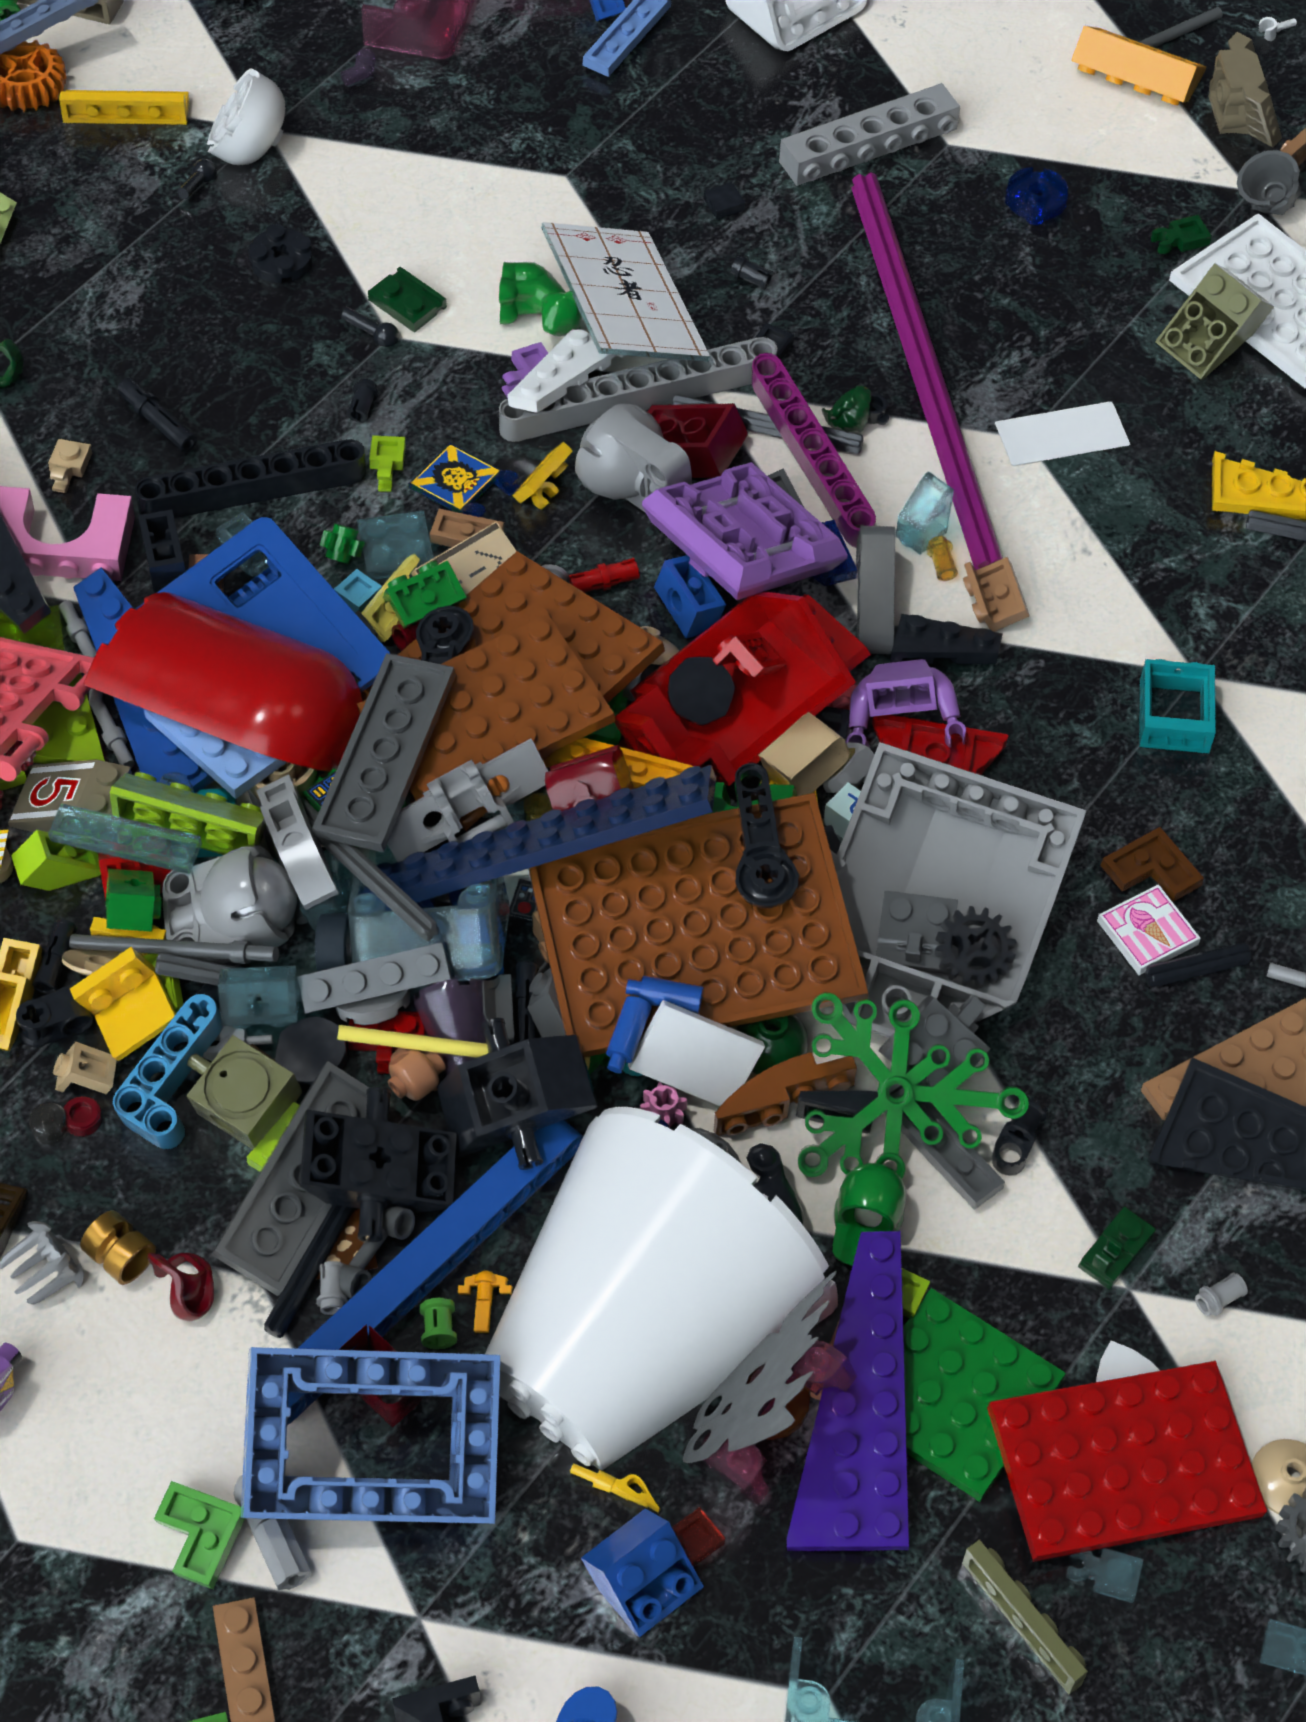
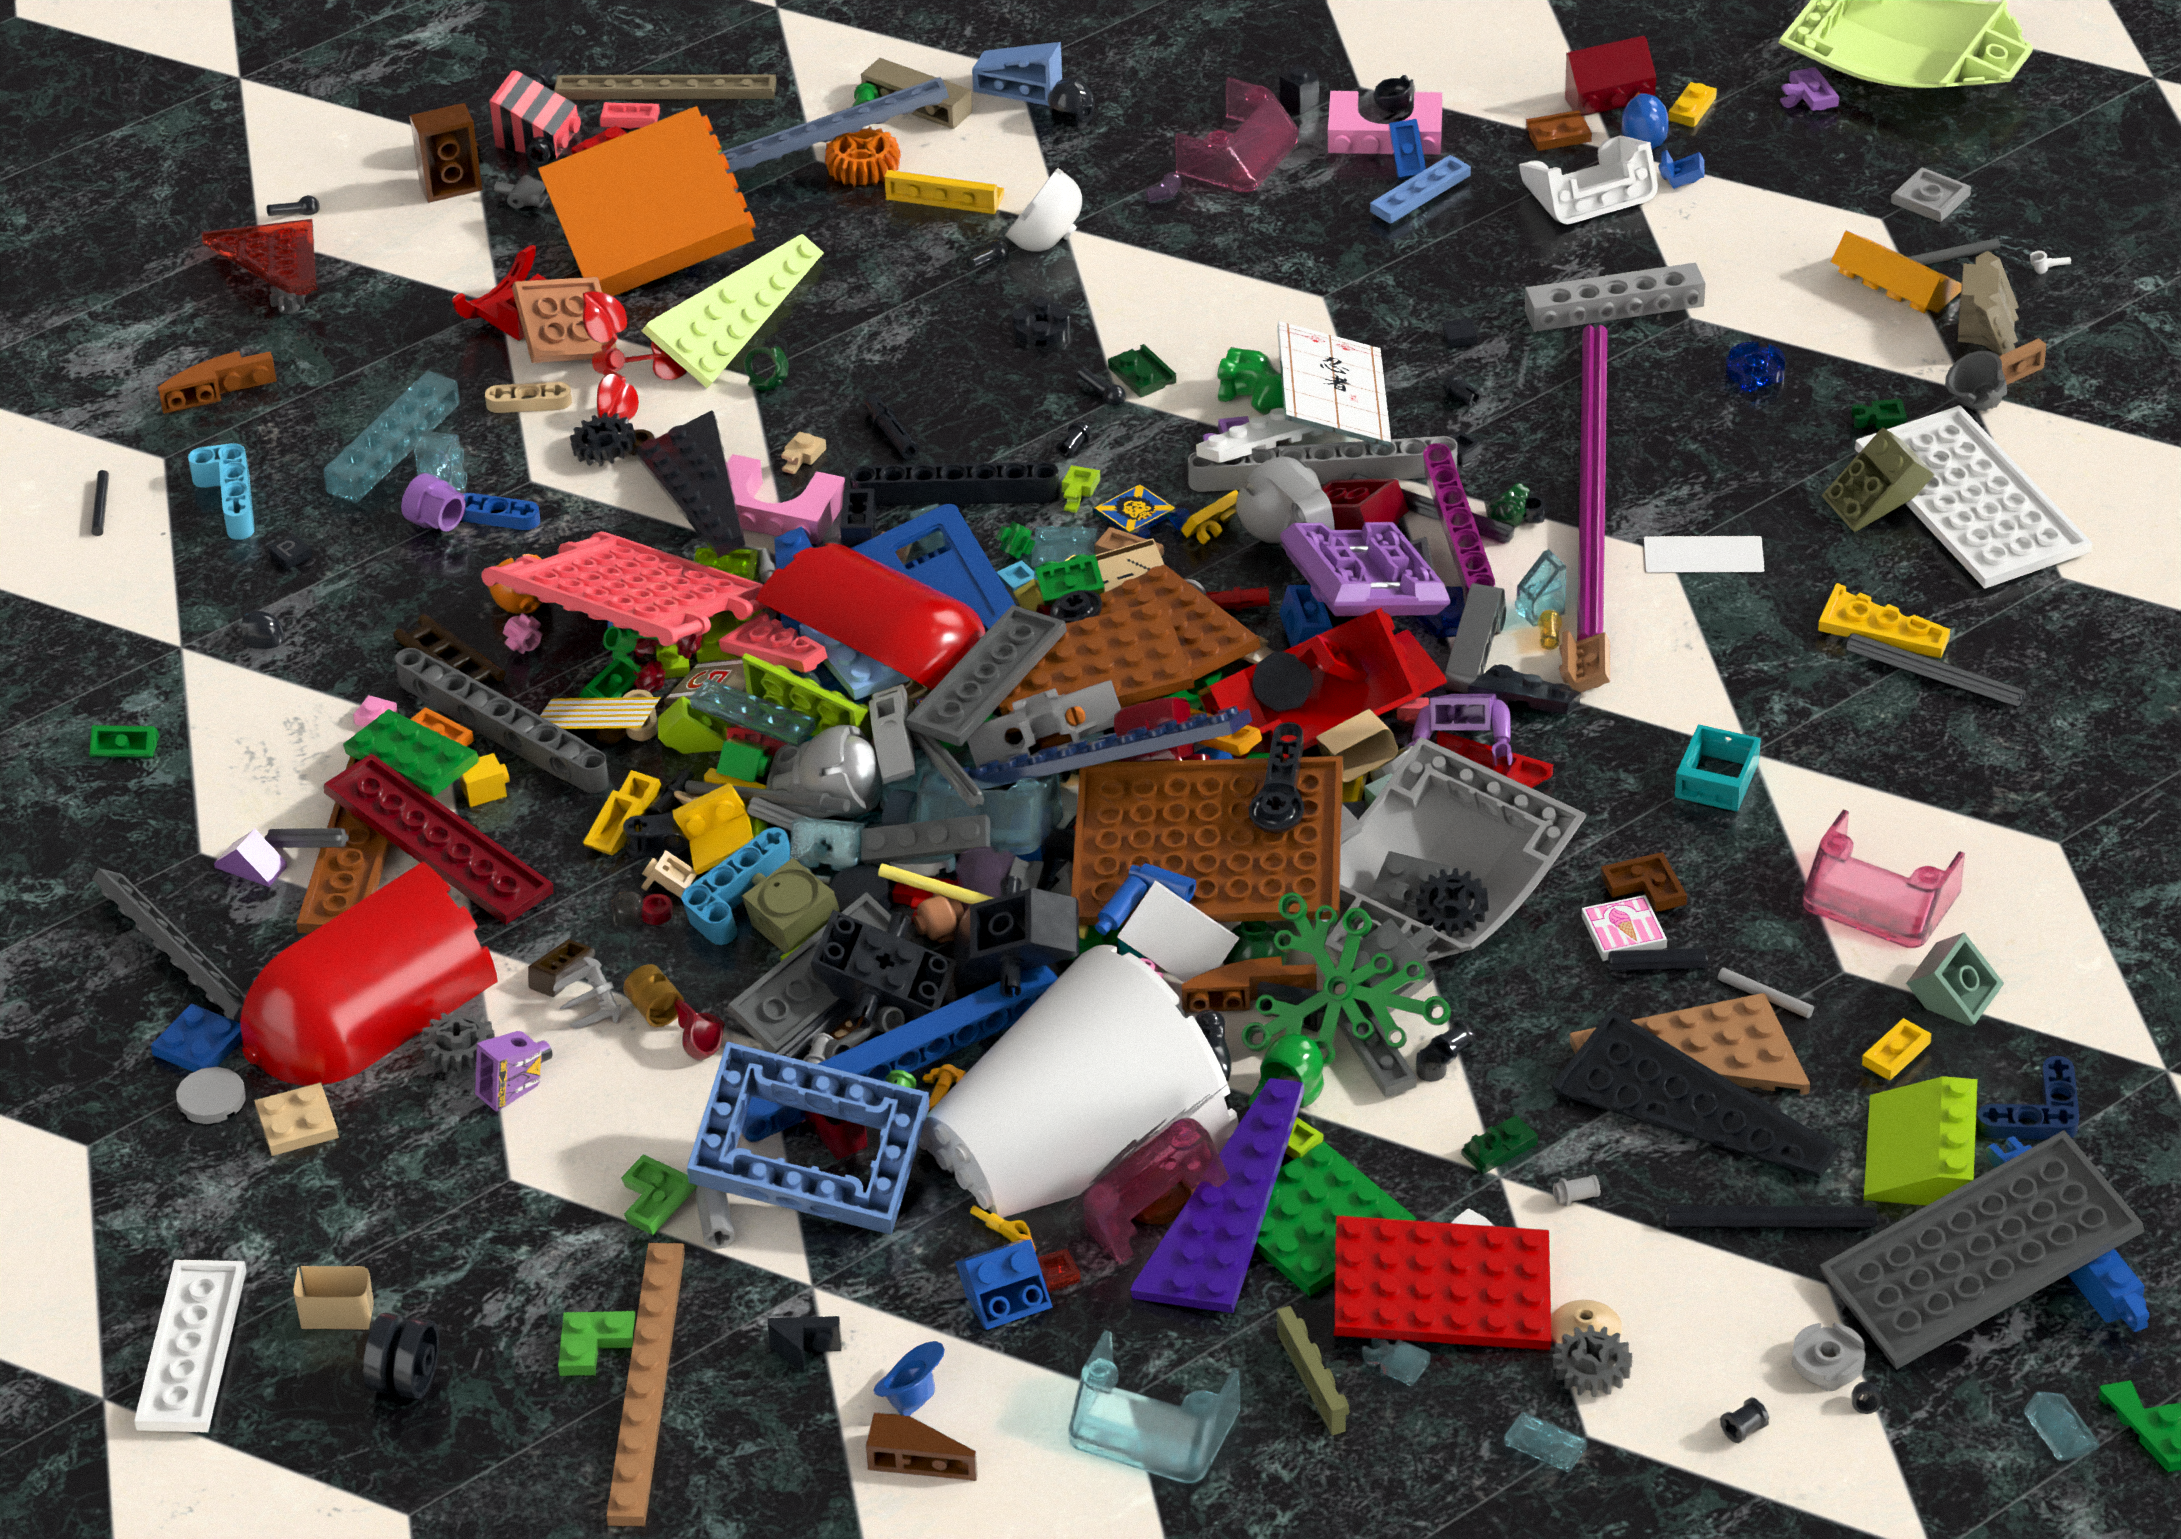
camera: 20 degrees right, 15 degrees down
(111, 735) = (774, 644): none -> coral wing

